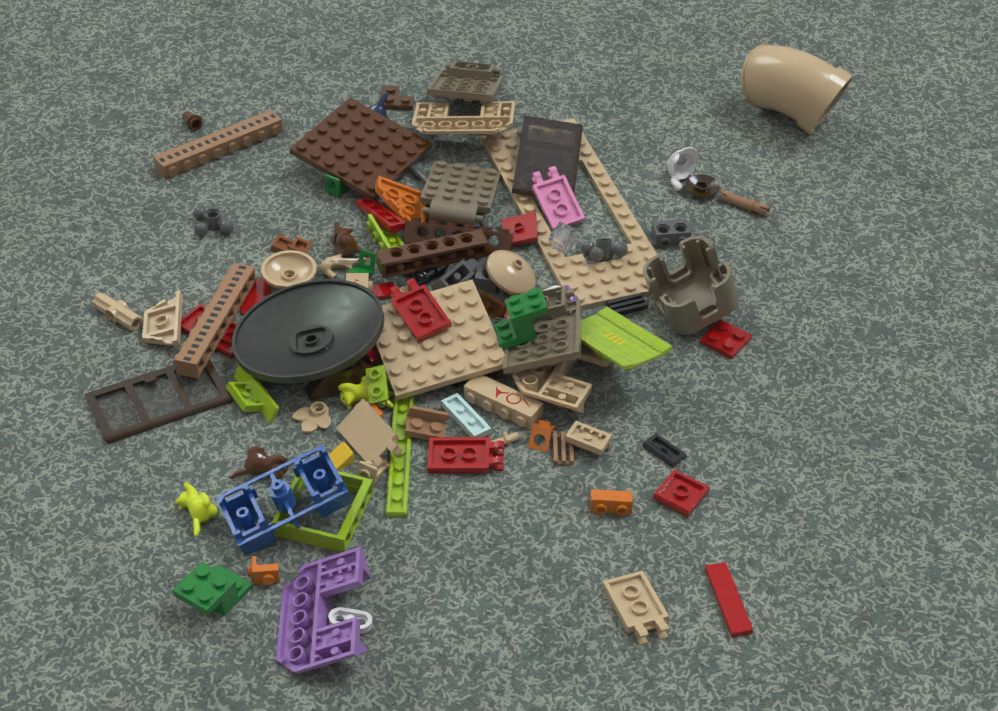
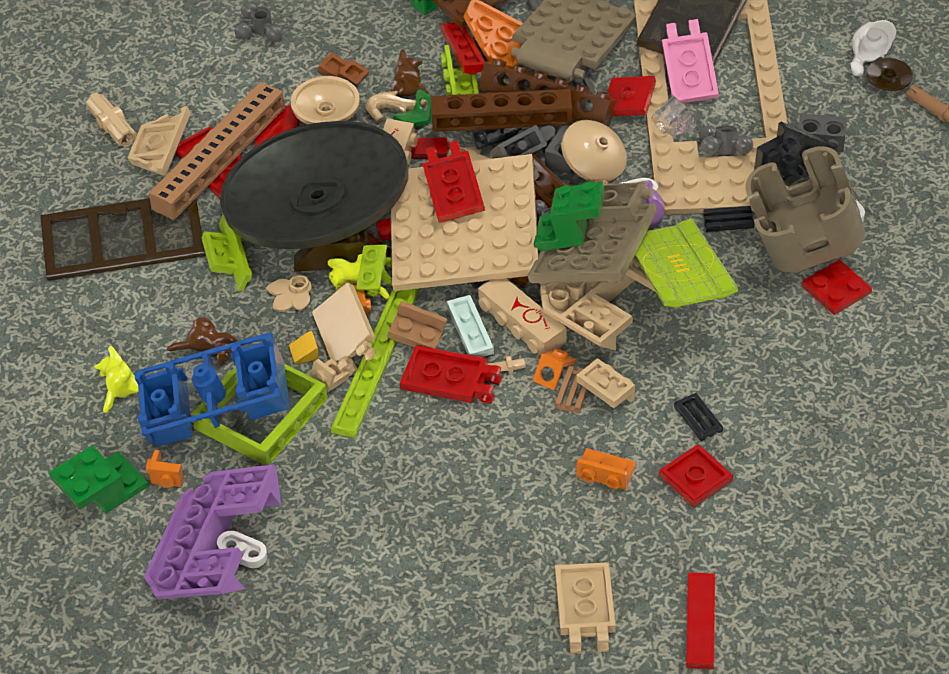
camera: 20 degrees right, 5 degrees up
(664, 244) = (787, 151): none -> black wing

